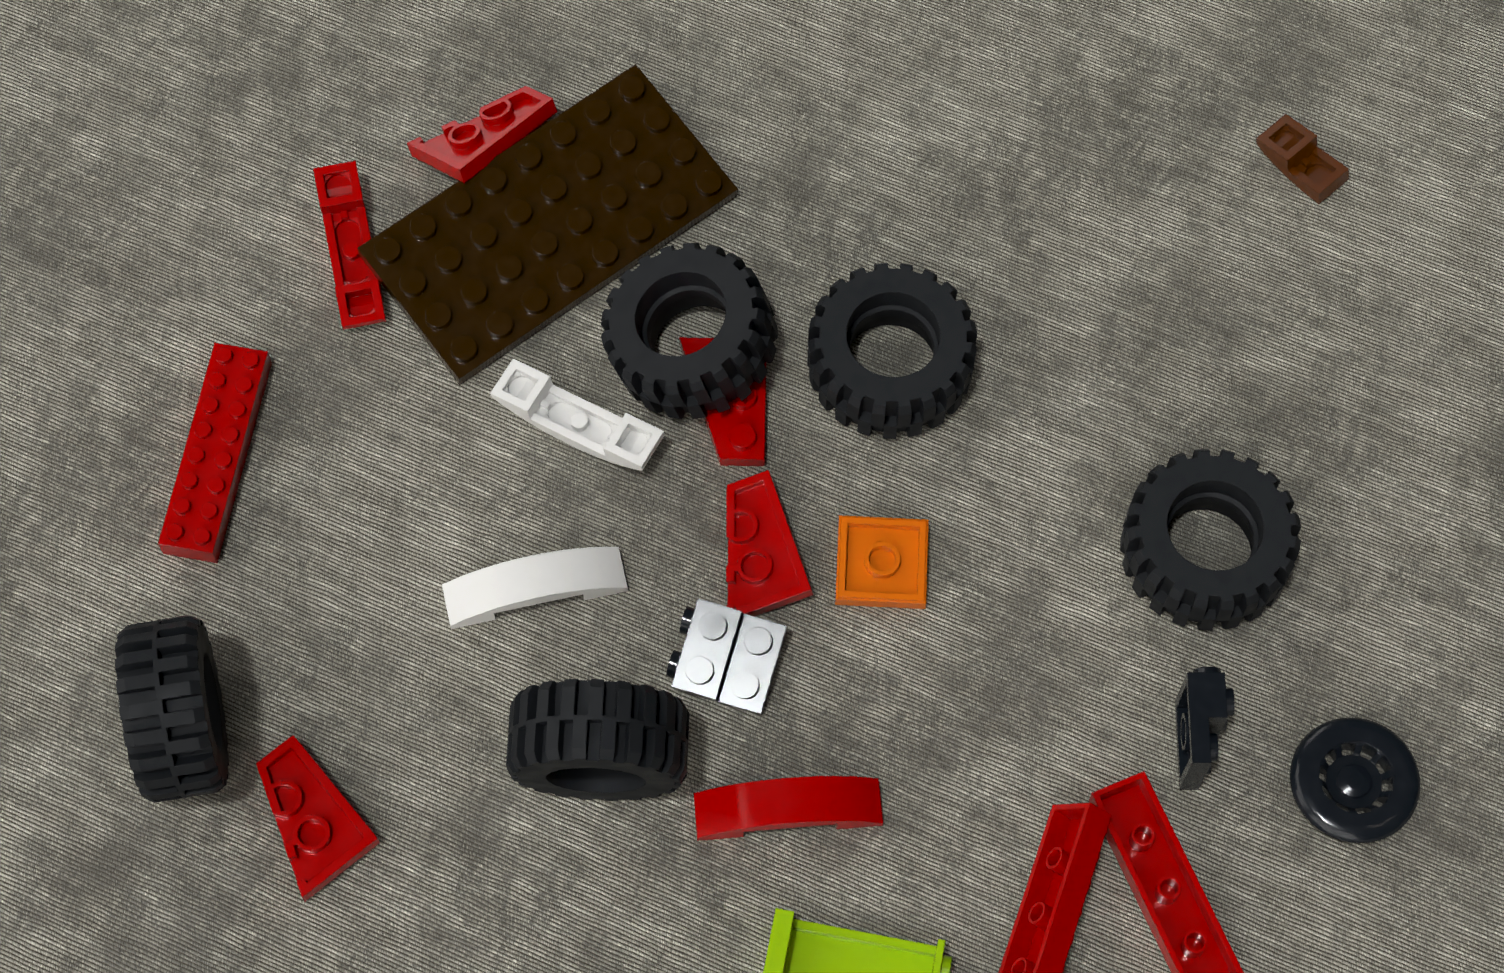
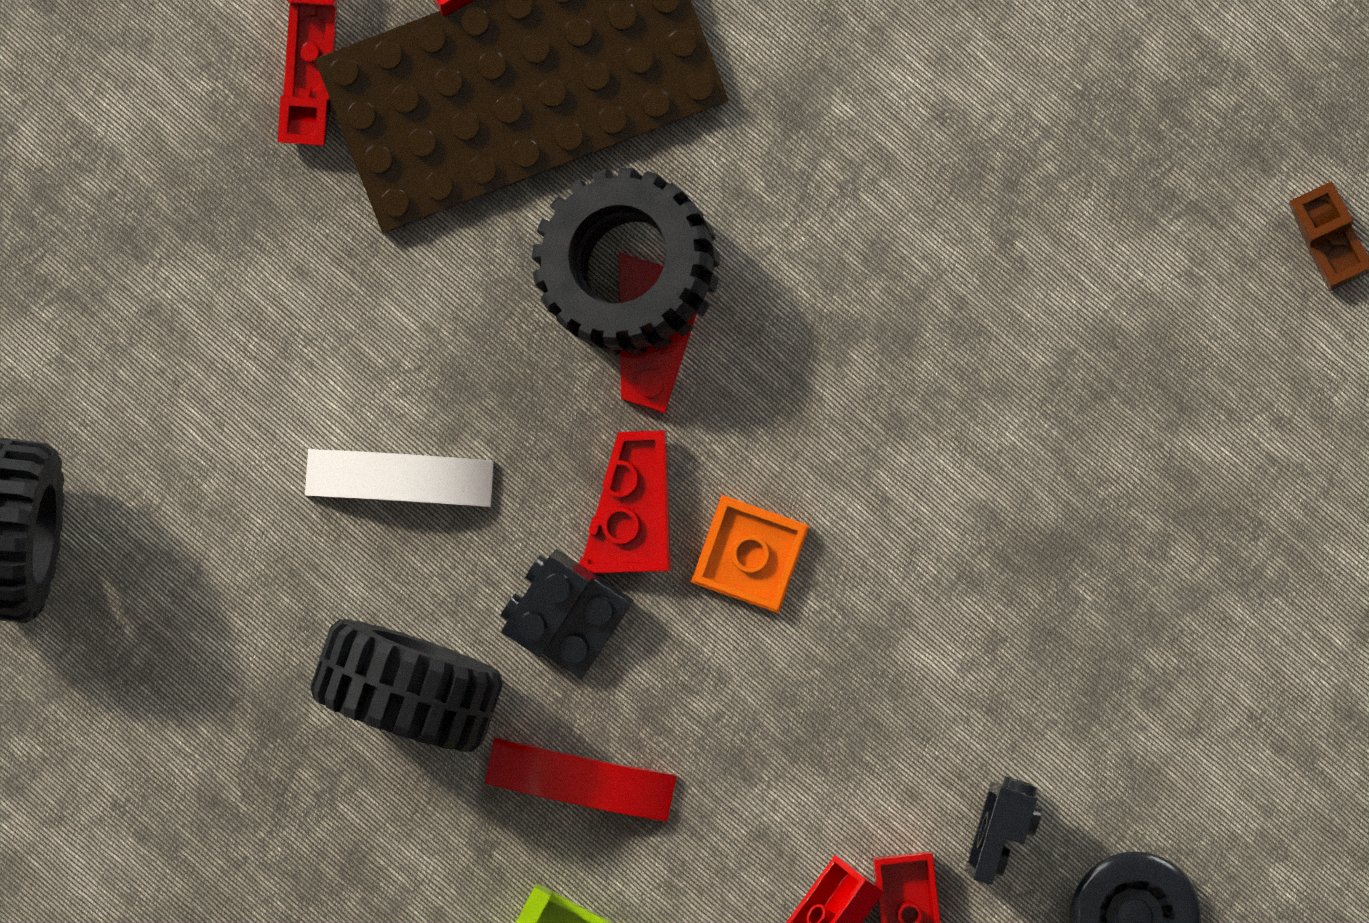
camera: 15 degrees right, 20 degrees up
(215, 453) = (118, 240): red piece -> none
(313, 817) = (121, 655): red wing -> none
(575, 420) = (489, 312): white slope -> none
(901, 300) = (840, 275): black tyre -> none
(1221, 487) = (1142, 653): black tyre -> none

